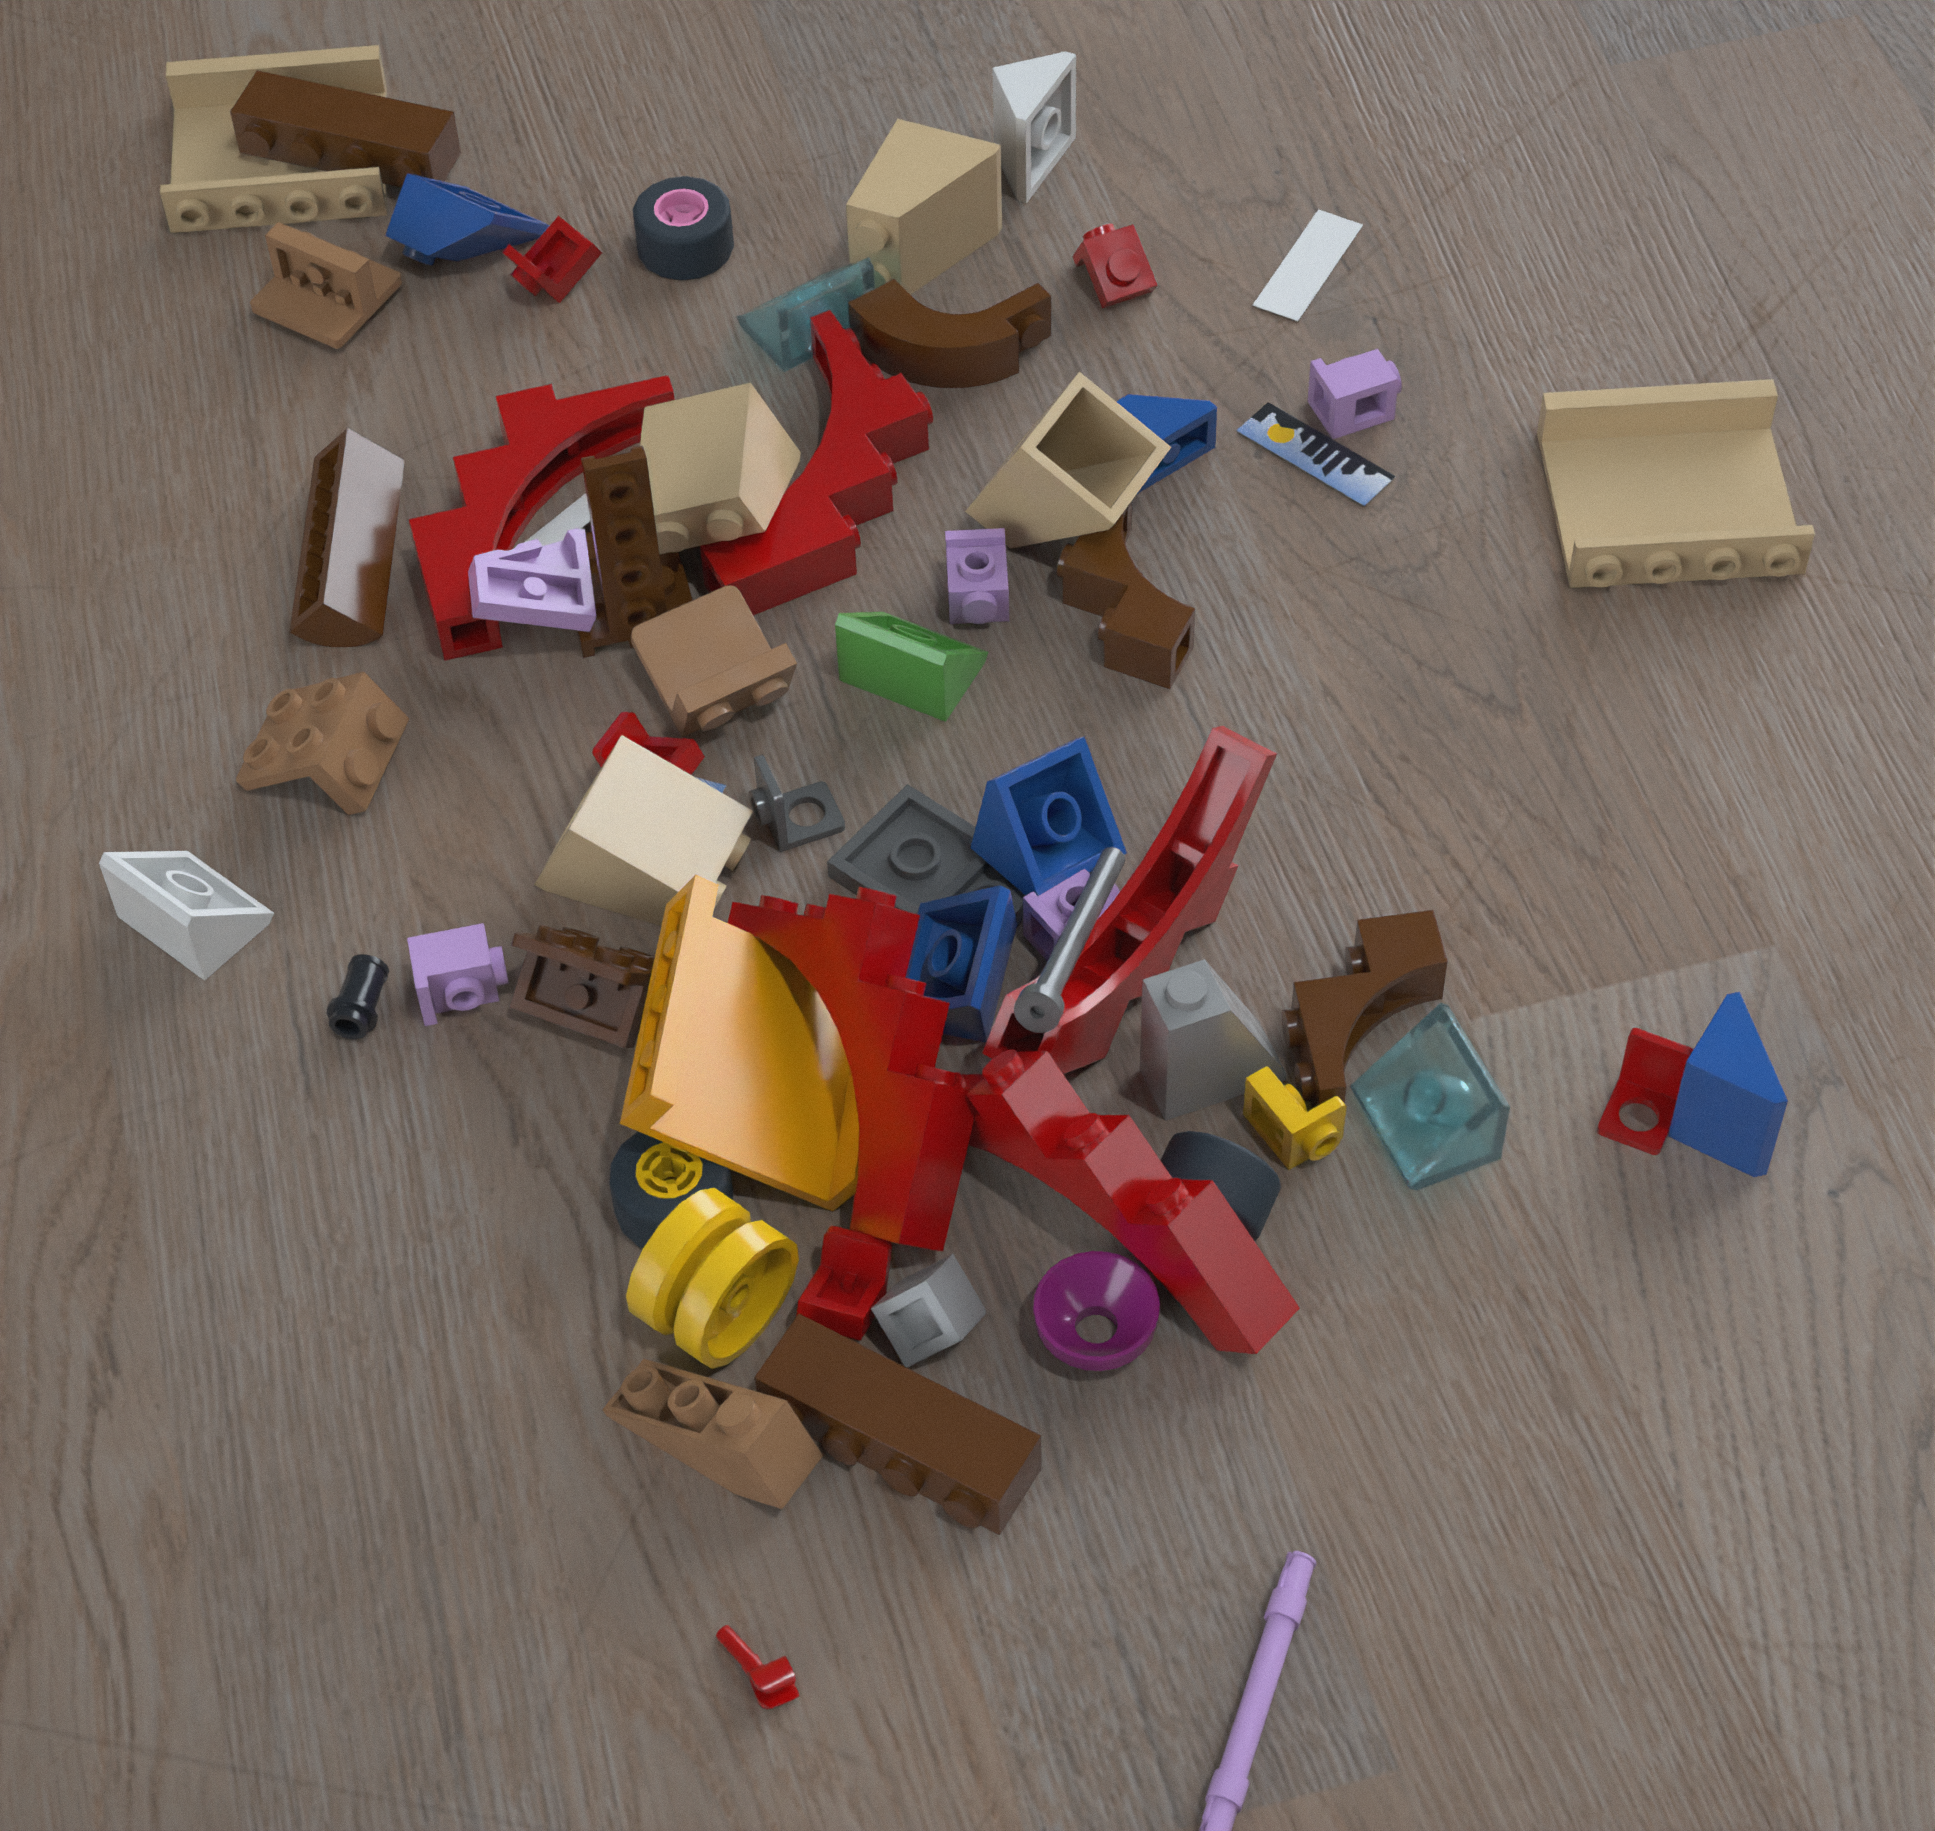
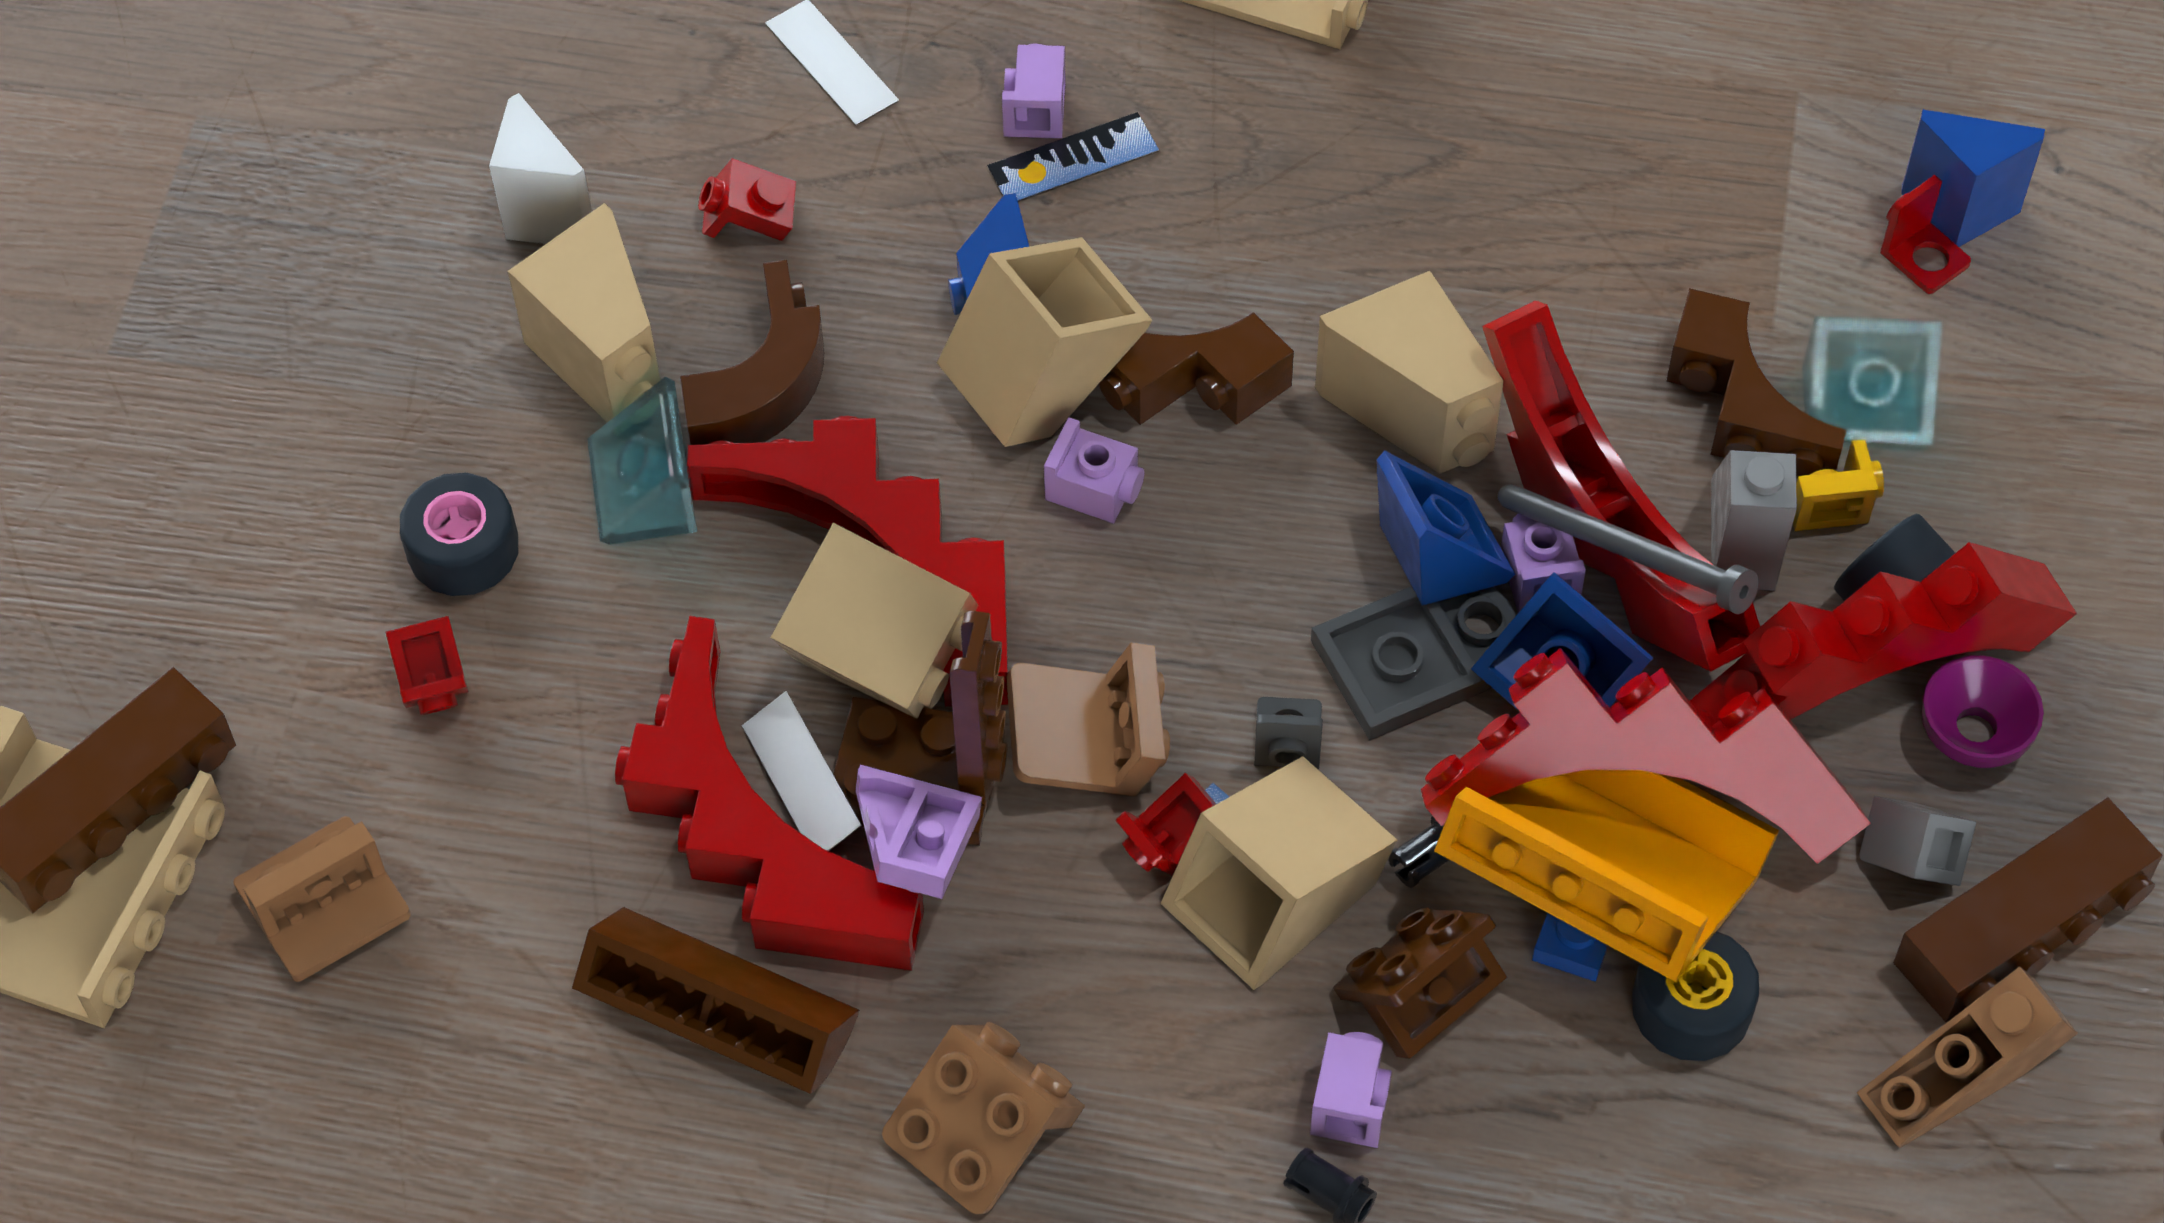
camera: 65 degrees left, 5 degrees up
(455, 222) = (317, 730): blue slope -> none
(712, 1277) = (1841, 985): yellow wheel -> none
(848, 1282) = (1868, 896): red bracket -> none
(905, 662) = (1160, 566): bright green slope -> none
(1199, 692) = (1412, 373): none -> tan slope

